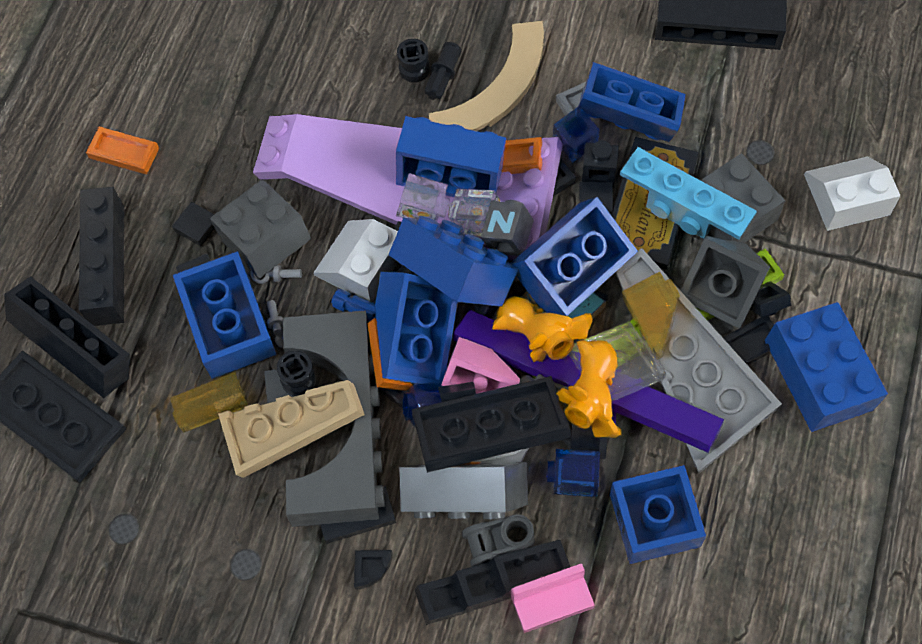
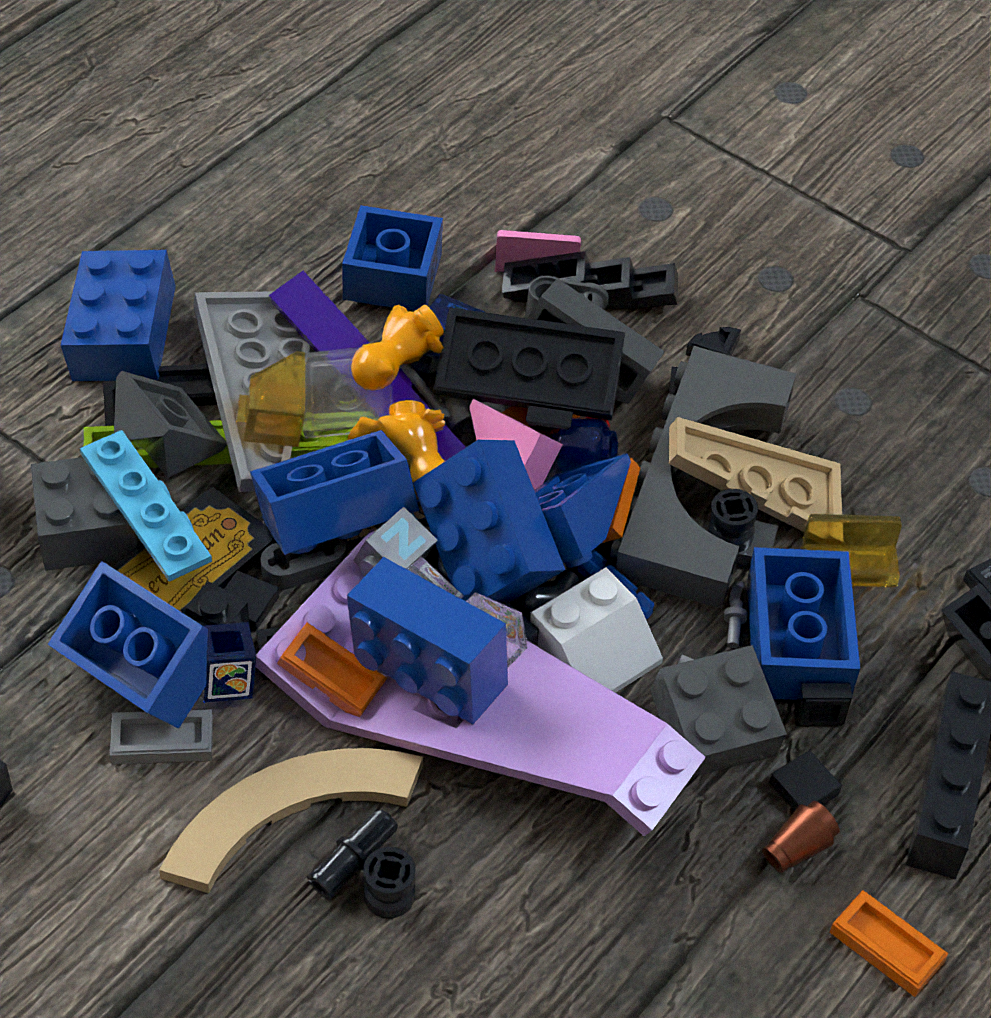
camera: 165 degrees left, 15 degrees down
(187, 184) = (802, 836): none -> copper cone

